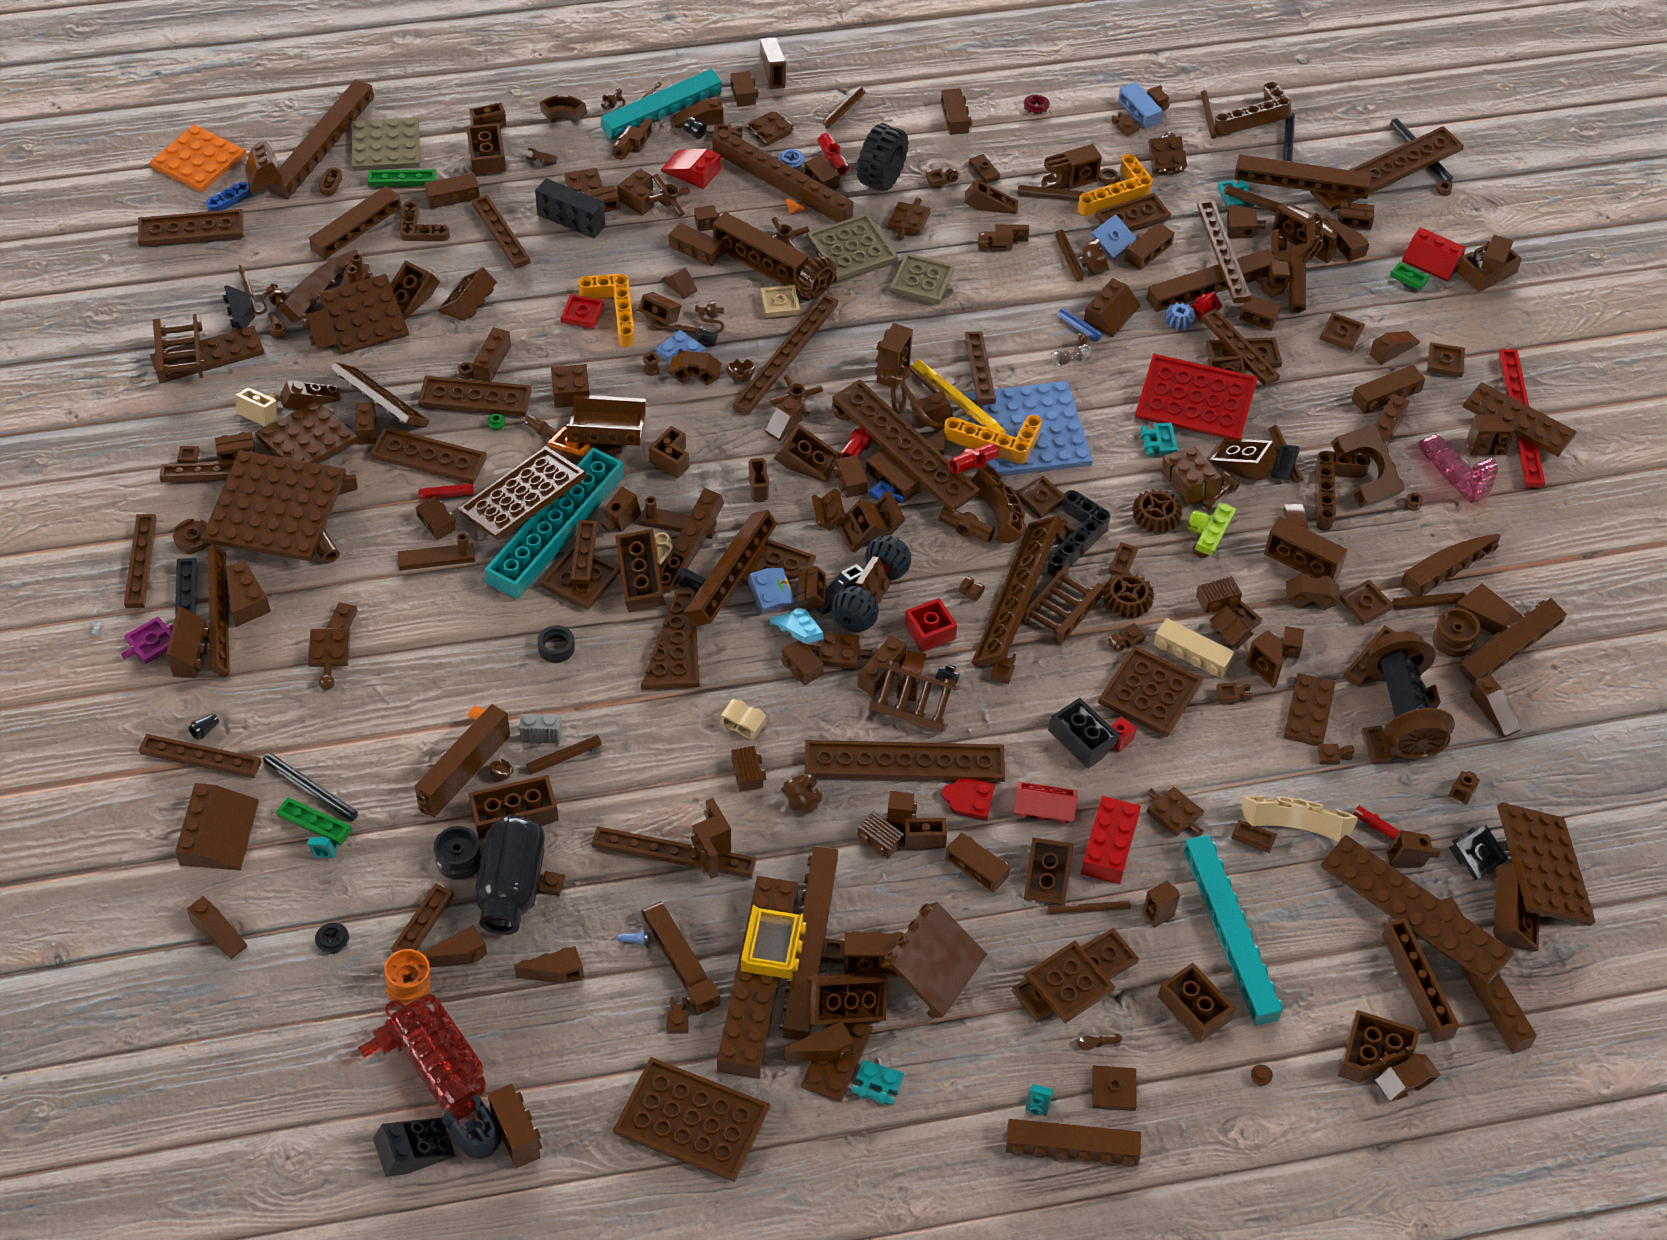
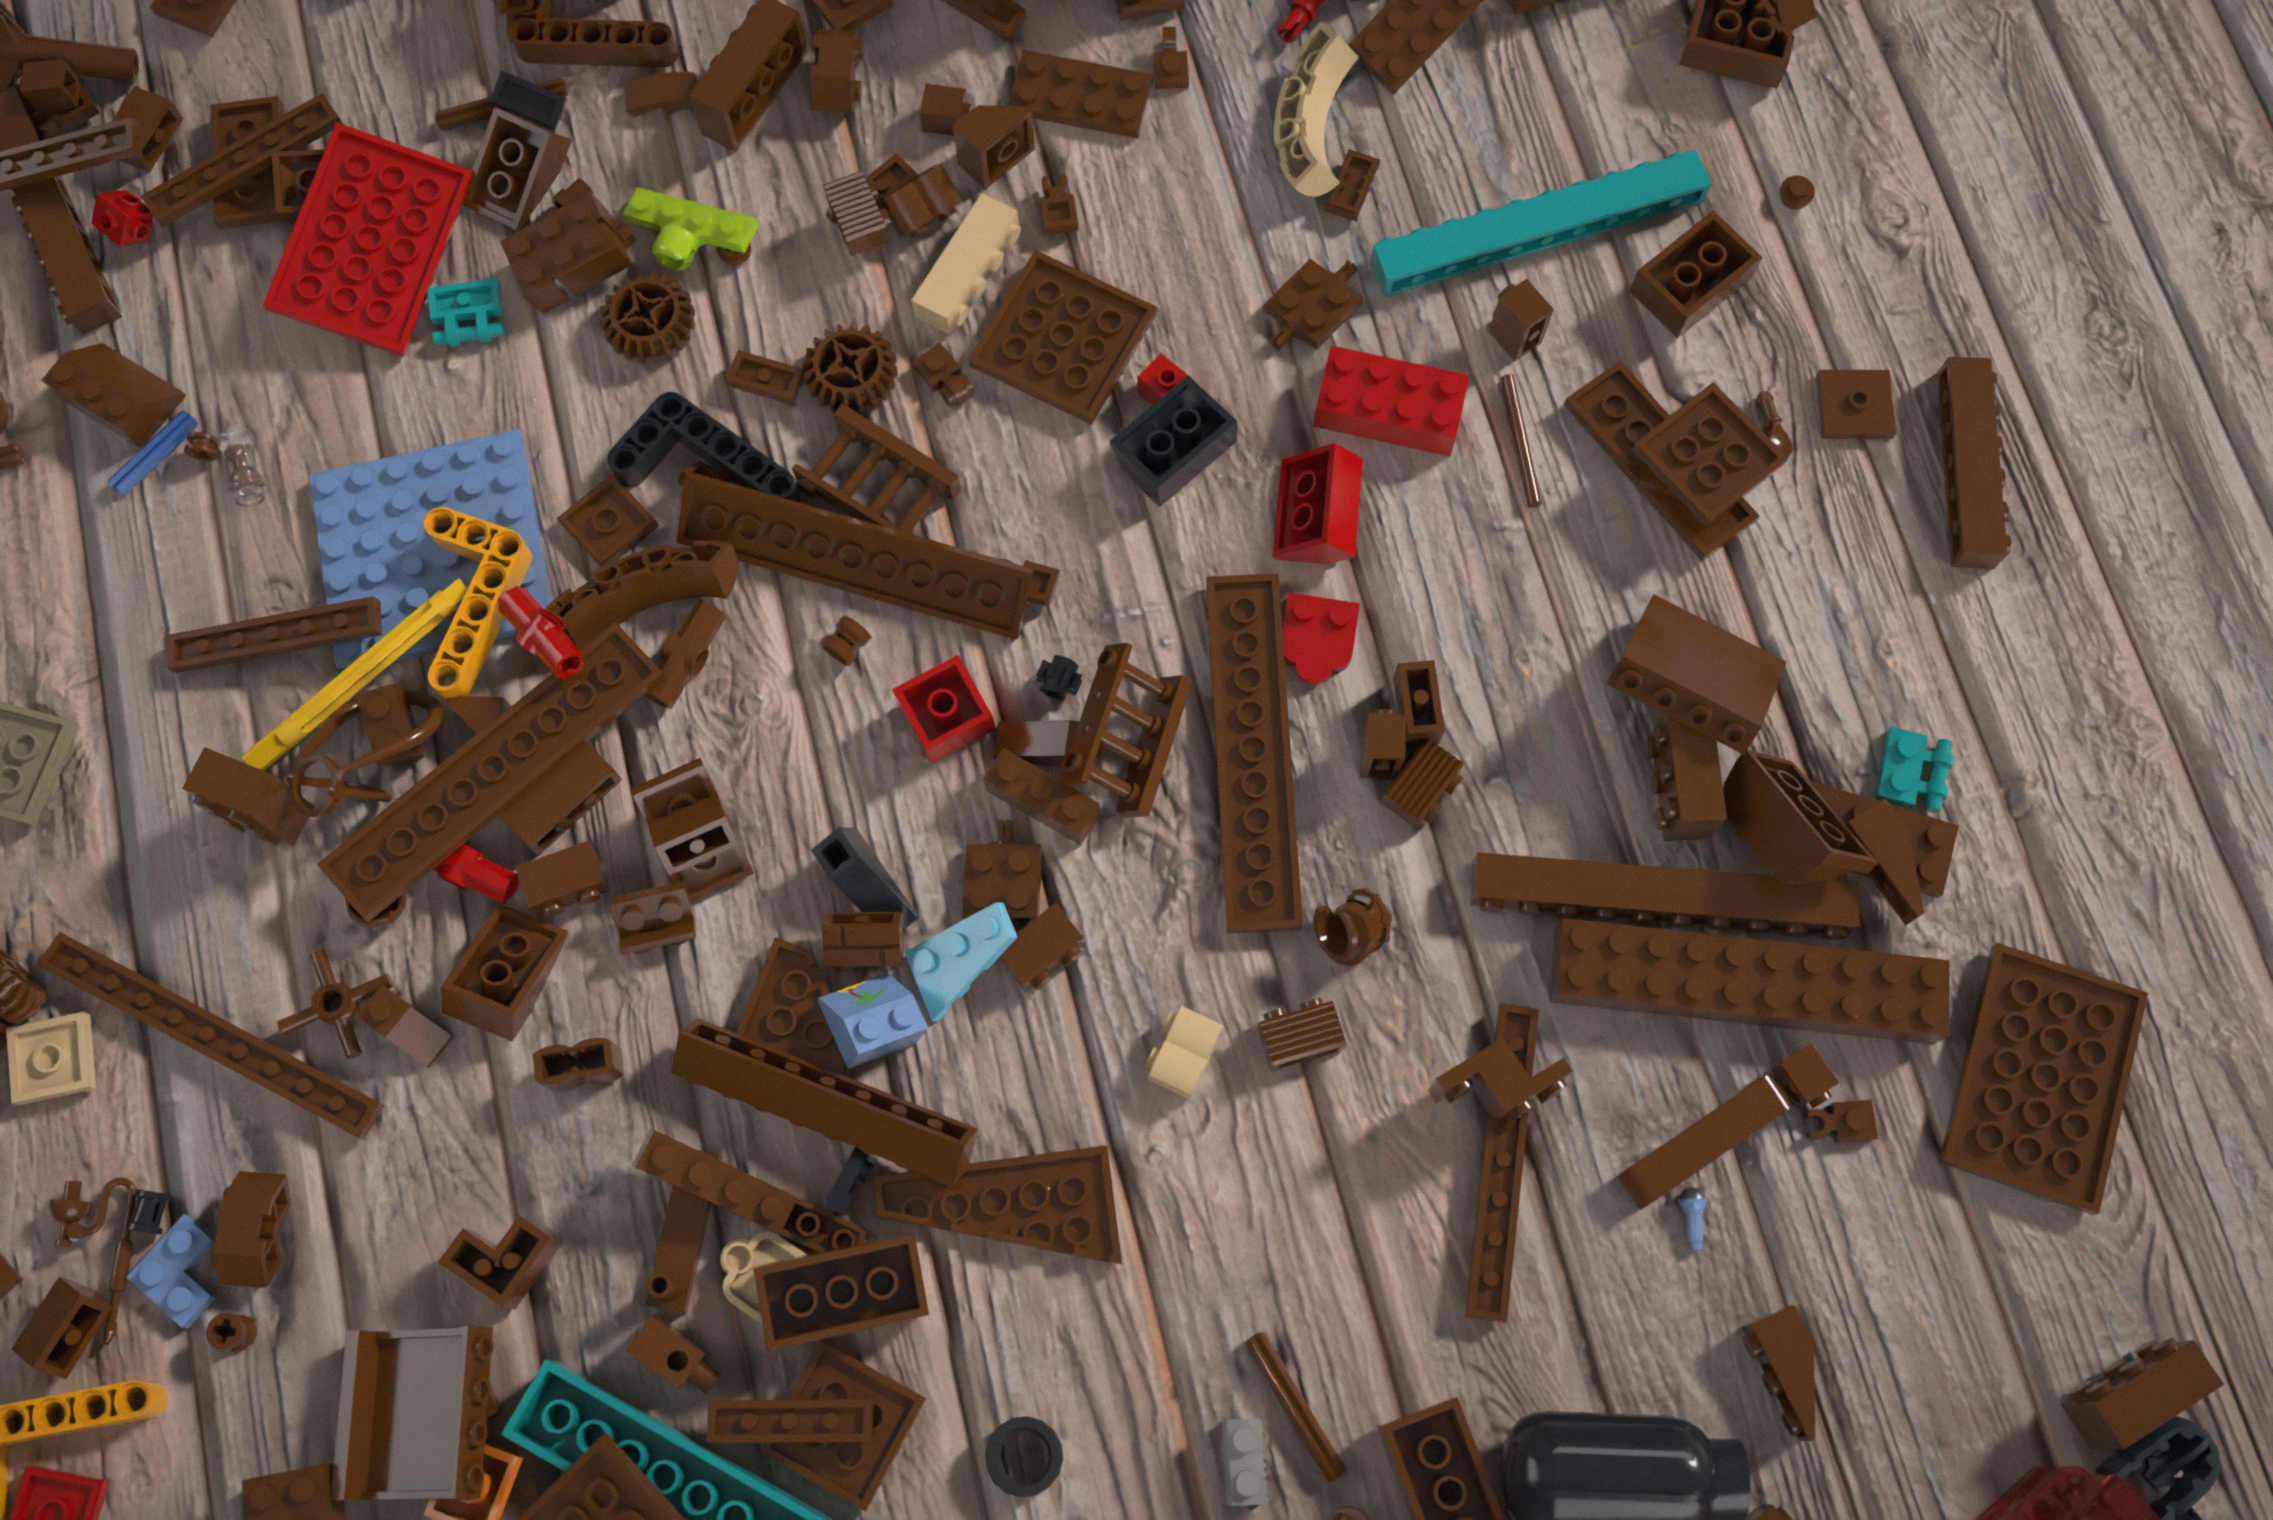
camera: 90 degrees left, 20 degrees up
(552, 883) = (1594, 1391): reddish brown plate -> none
(741, 371) = (259, 1127): reddish brown hair -> none
(773, 943) = (1718, 945): window -> none
(833, 950) = (1672, 851): reddish brown plate -> none
(858, 606) = (794, 792): black plate -> none
(880, 488) = (606, 814): blue plate -> none
(977, 862) = (1460, 615): reddish brown brick -> none
(1039, 1099) = (1907, 516): teal bracket -> none
(1048, 871) = (1462, 500): reddish brown slope -> none
(1179, 316) = (144, 268): medium blue gear -> none

